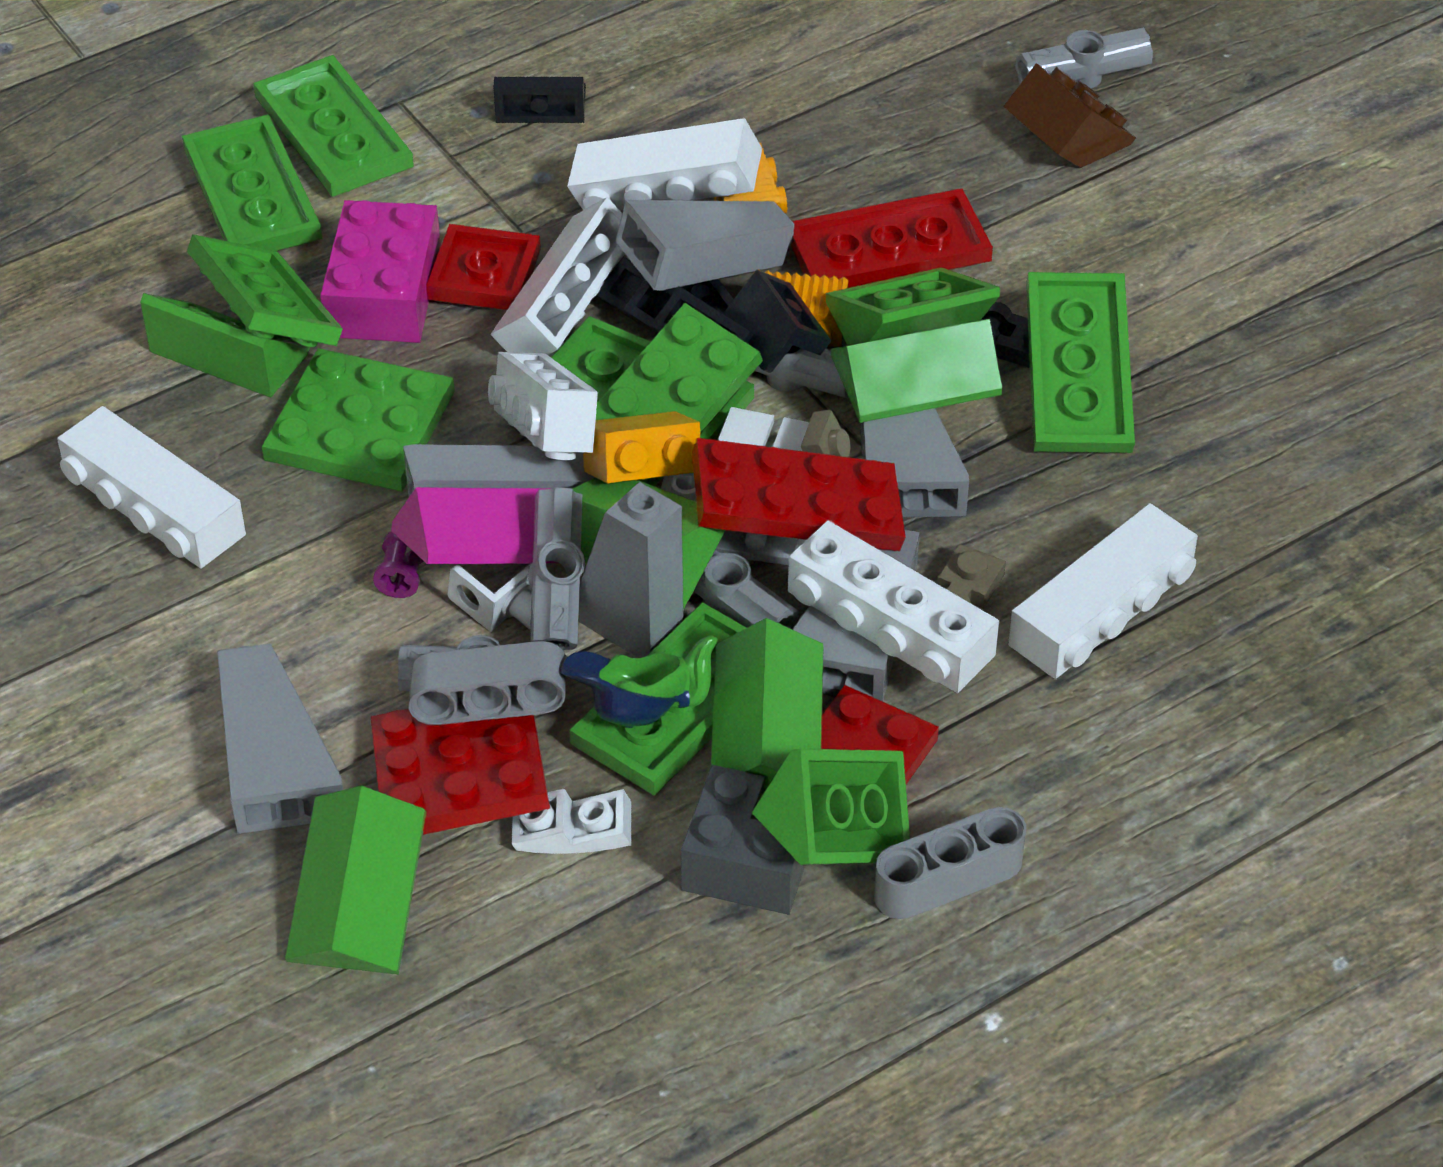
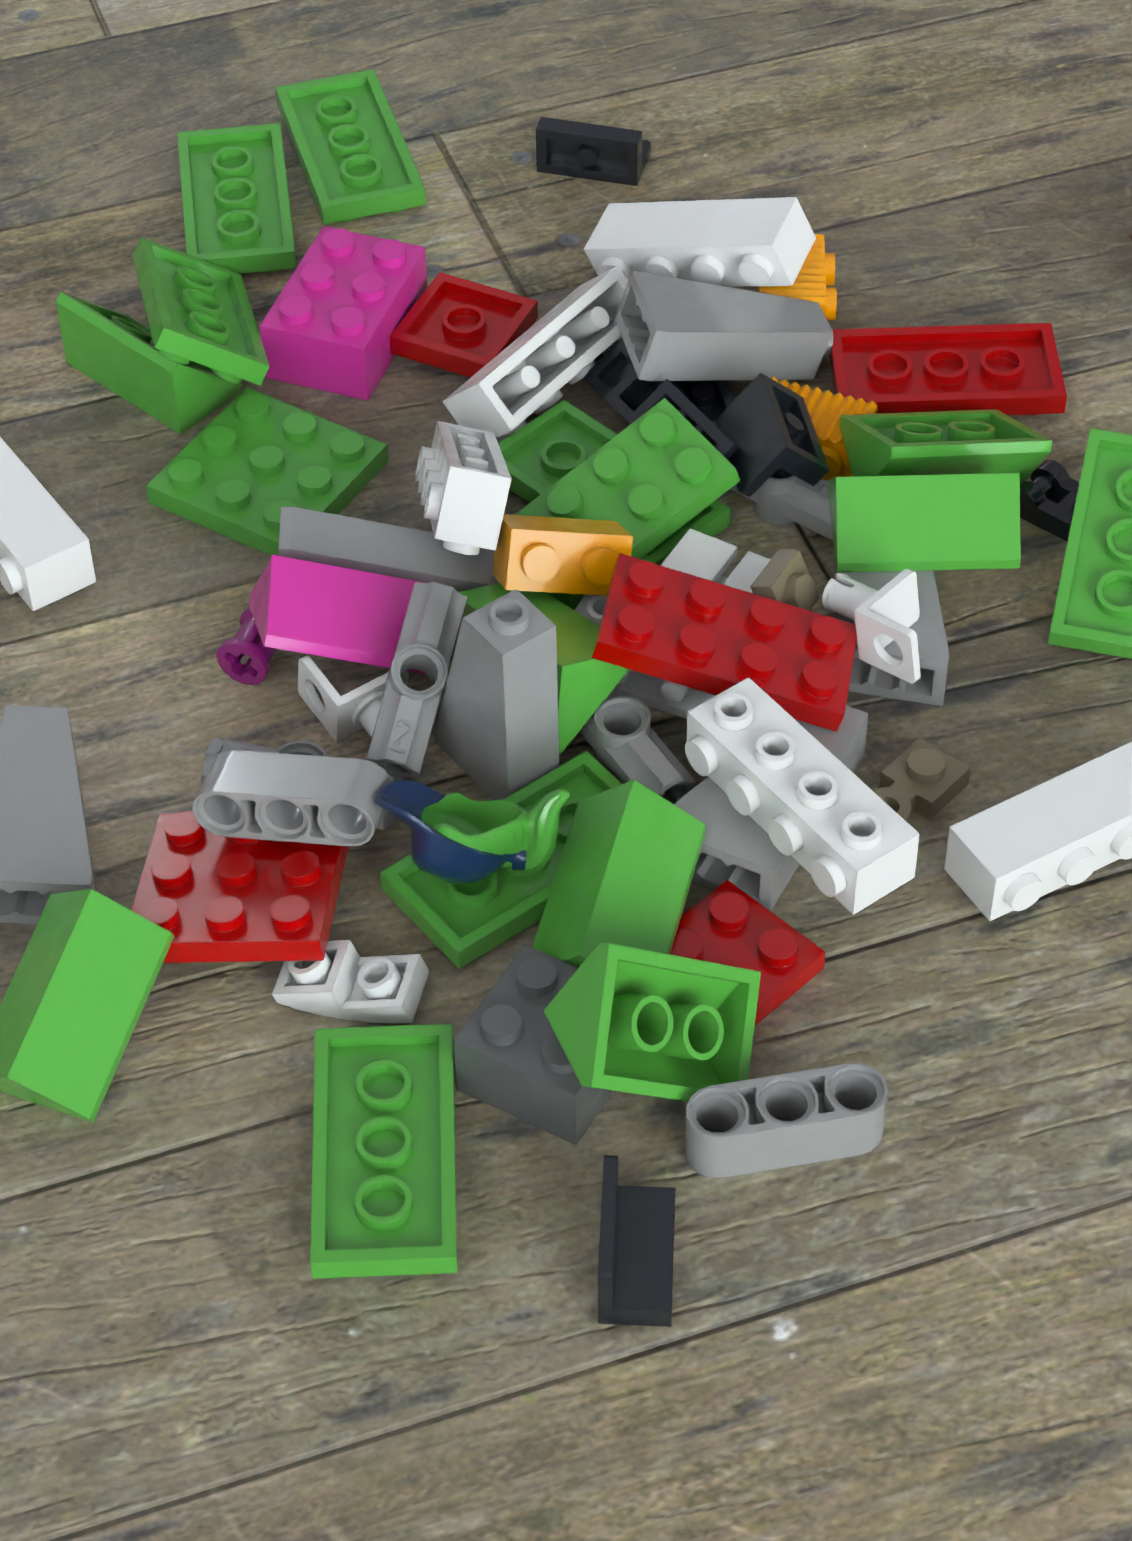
camera: 15 degrees right, 0 degrees up
(645, 948) = (383, 1152): none -> bright green plate
(864, 985) = (635, 1252): none -> black panel
(910, 453) = (880, 619): none -> white bracket

